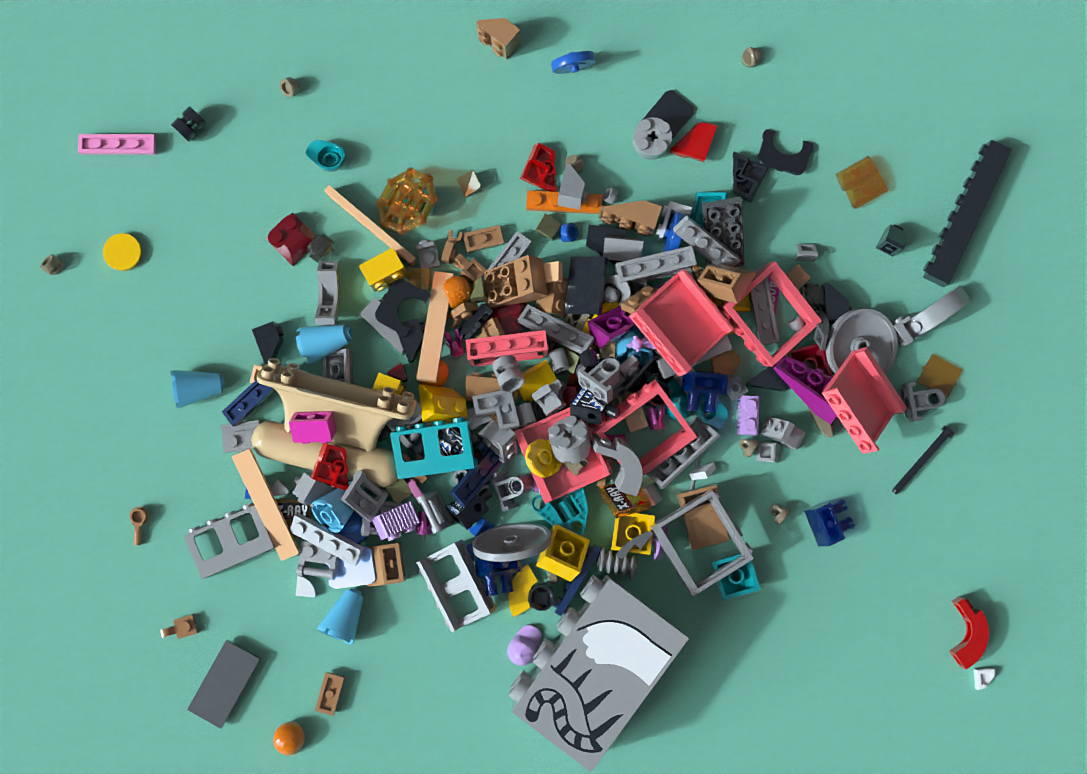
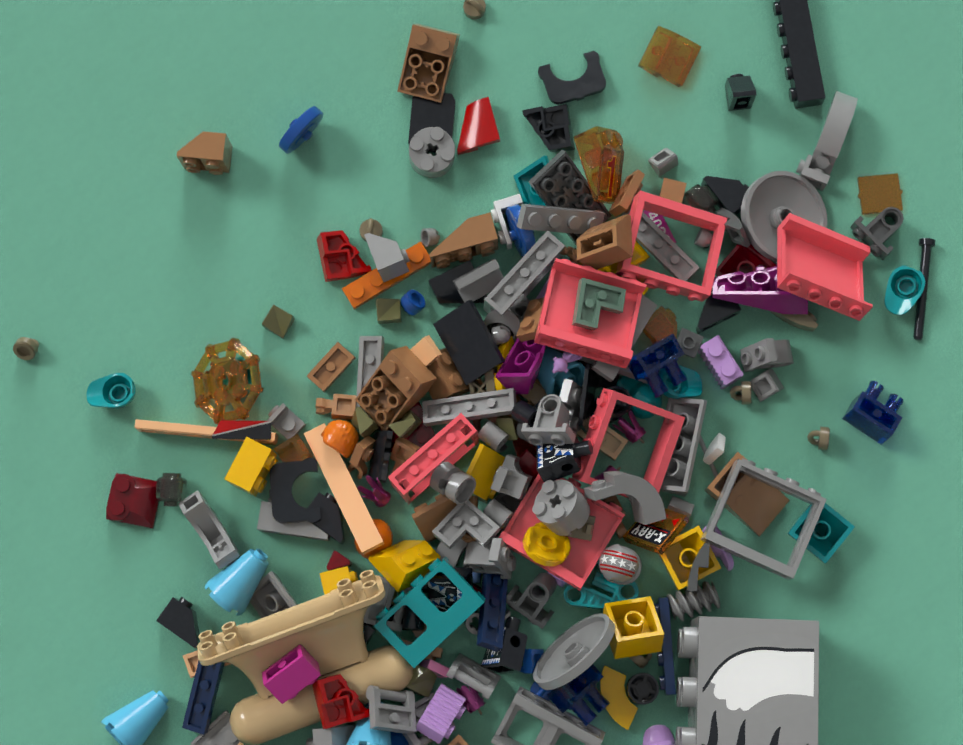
camera: 30 degrees left, 5 degrees down
(394, 240) = (241, 429): none -> sticker
(449, 251) = (305, 403): medium nougat plate -> none
(506, 312) = (406, 424): none -> olive slope
(583, 505) = (620, 564): none -> light grey helmet
(688, 313) = (595, 296): none -> sand green plate
(692, 74) = (428, 62): none -> medium nougat slope
(763, 224) = (602, 161): none -> clear orange slope
(769, 255) = (630, 187): none -> medium nougat plate
(908, 452) = (903, 289): none -> teal piece

